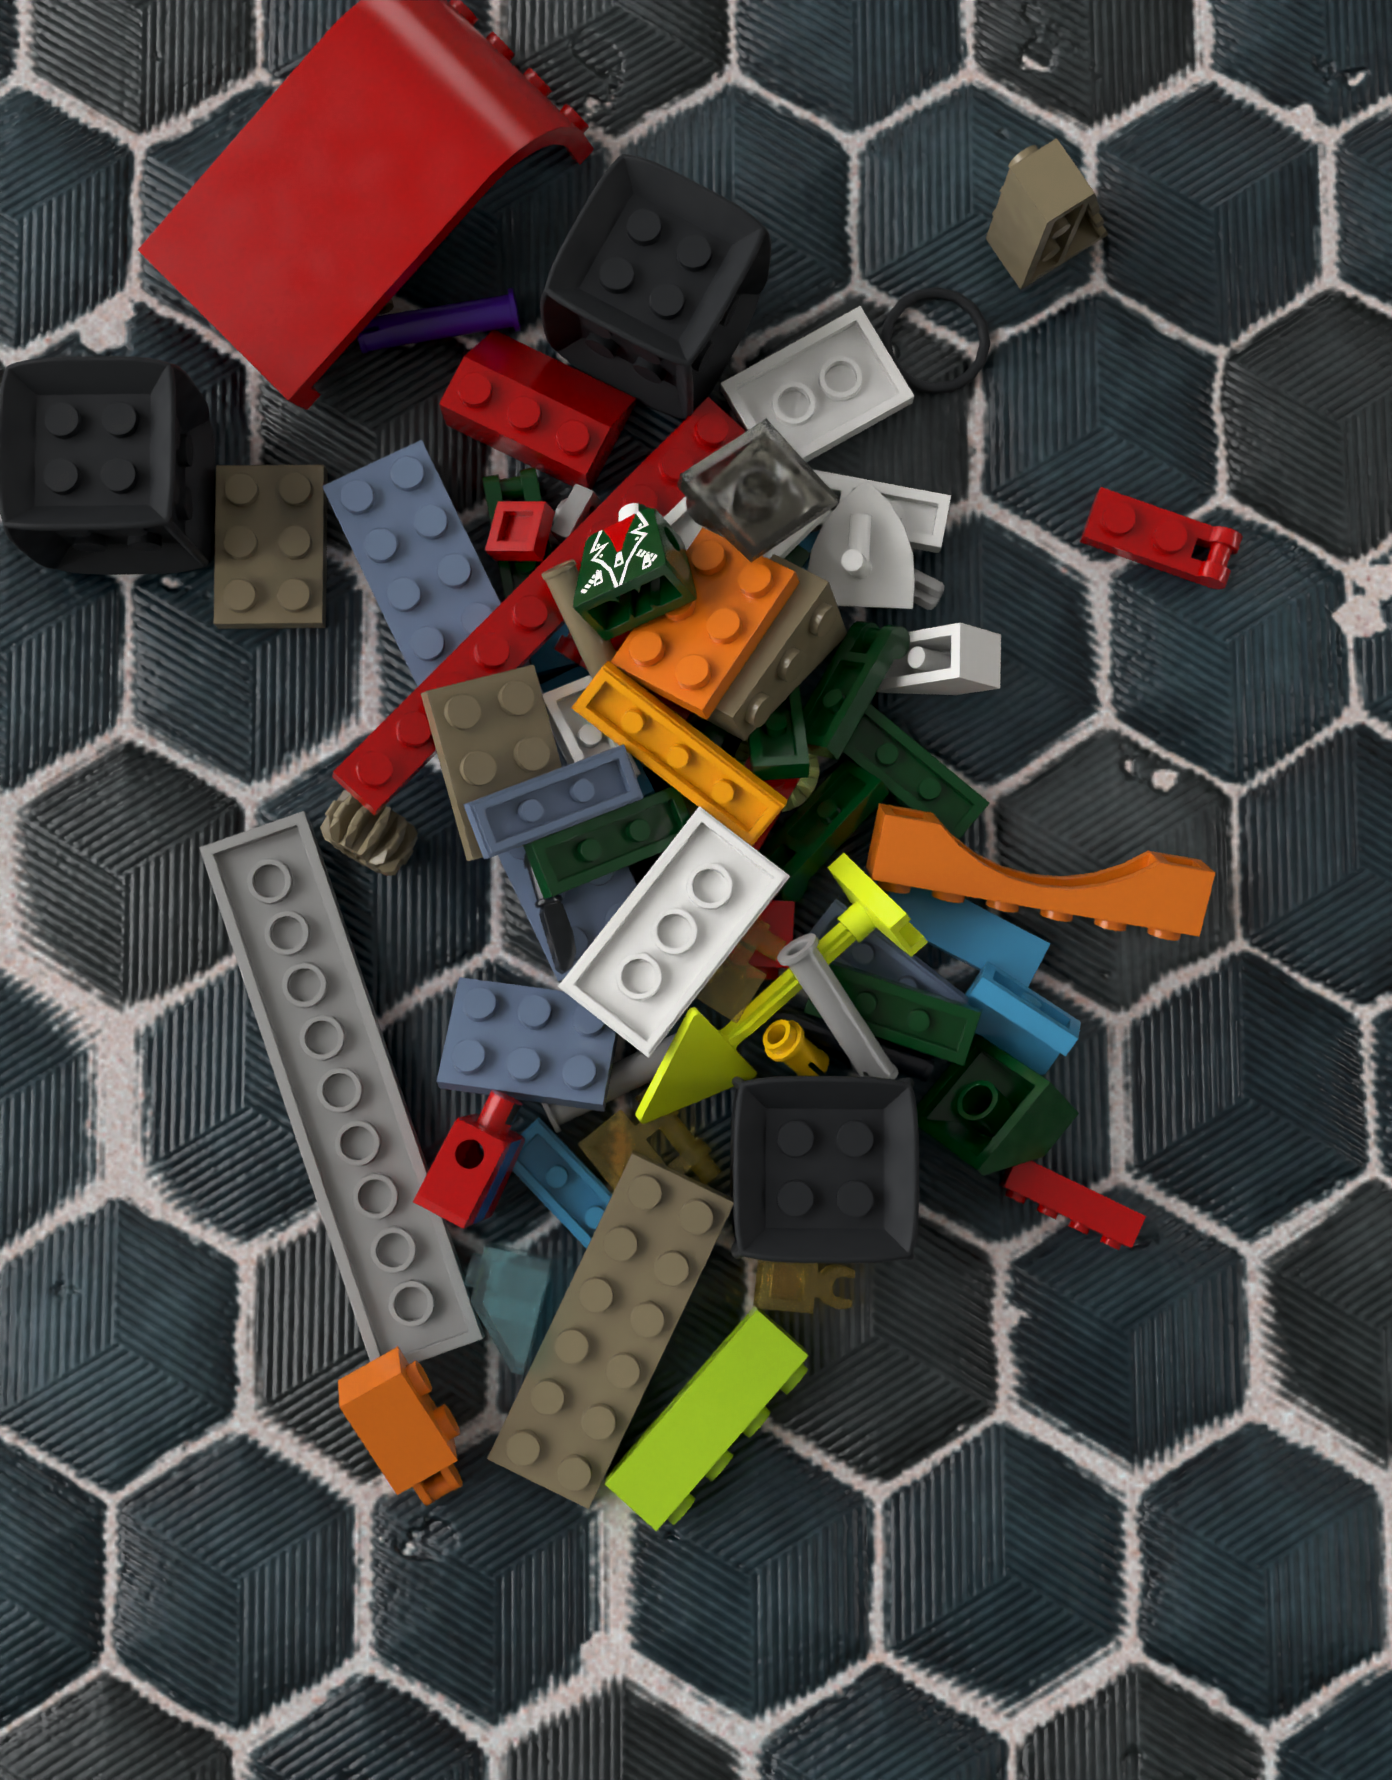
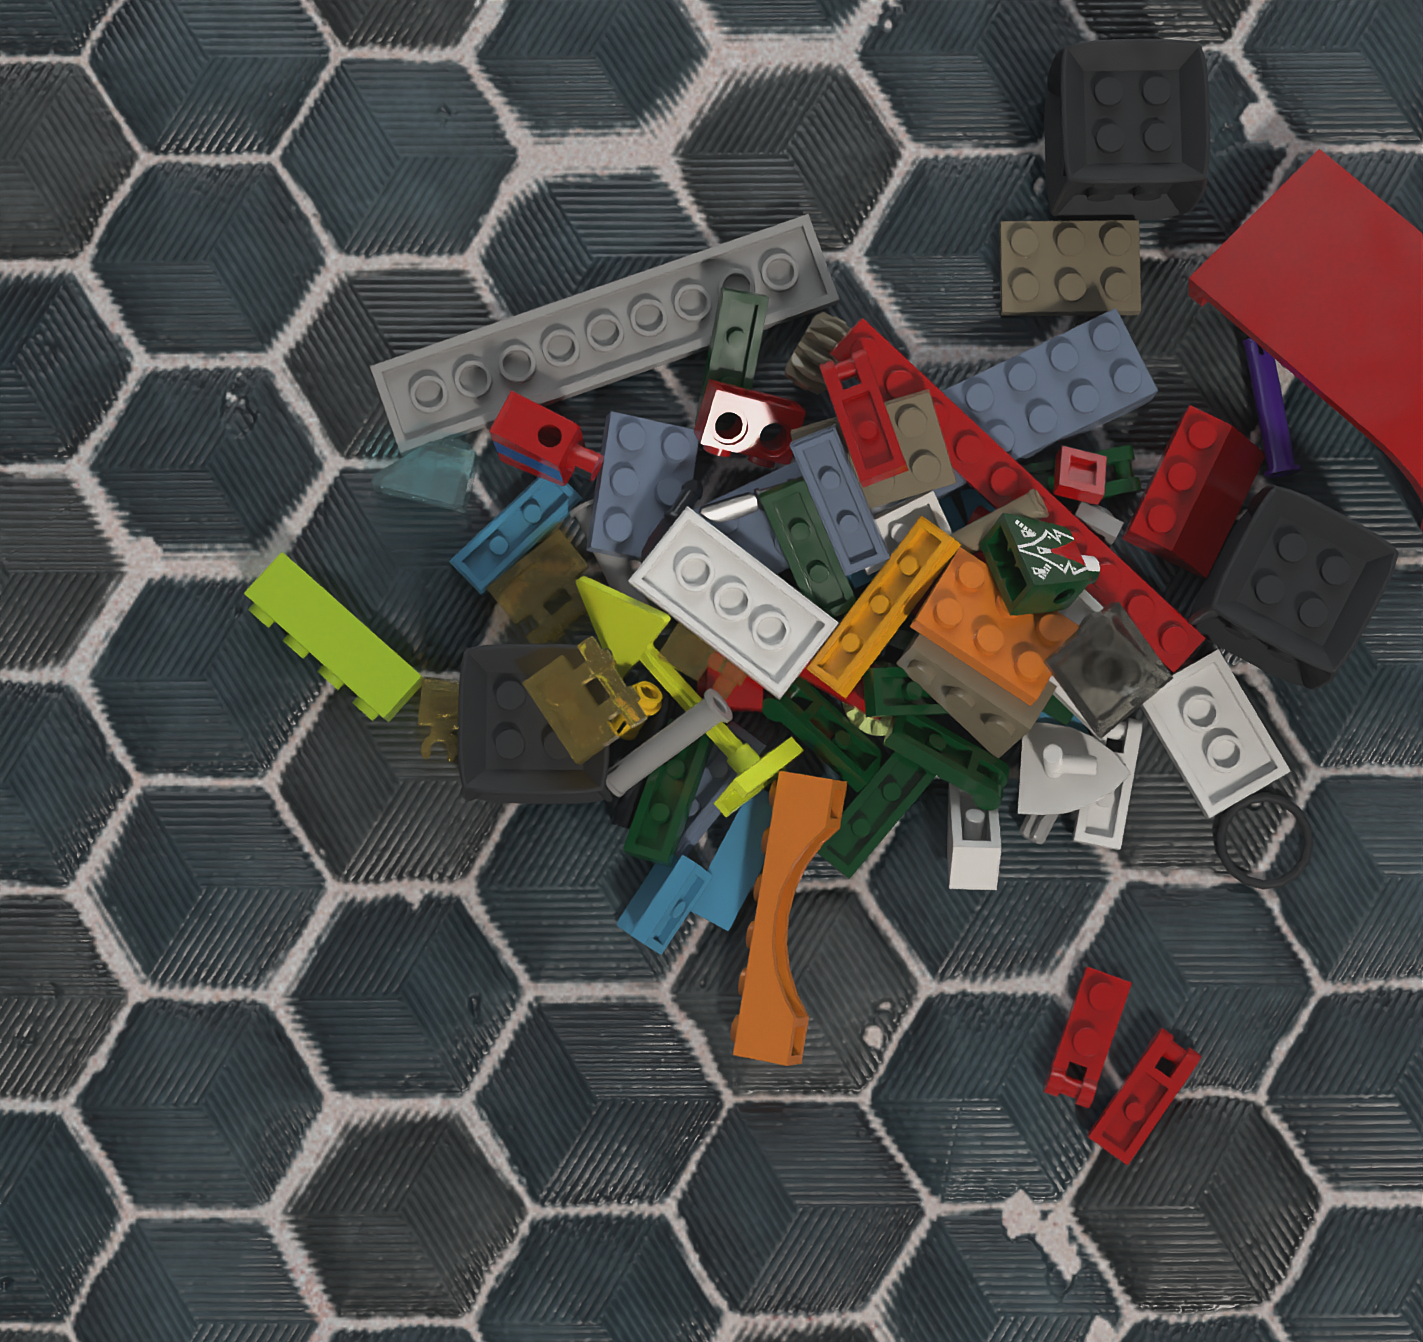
camera: 90 degrees right, 0 degrees up
(376, 937) = (734, 344): none -> dark green plate
(402, 1425) = (330, 388): orange brick -> none
(442, 911) = (753, 413): none -> red brick
(459, 766) = (864, 419): none -> red plate
(537, 986) = (691, 492): none -> black piece
(611, 1329) = (406, 557): dark tan plate -> none
(817, 1120) = (572, 709): none -> clear yellow plate
(994, 1110) = (585, 878): dark green slope -> none
(1043, 214) = (1374, 934): dark tan wedge -> none
(1074, 1201) = (509, 947): red piece -> none
(1228, 476) = (1143, 1097): none -> red plate

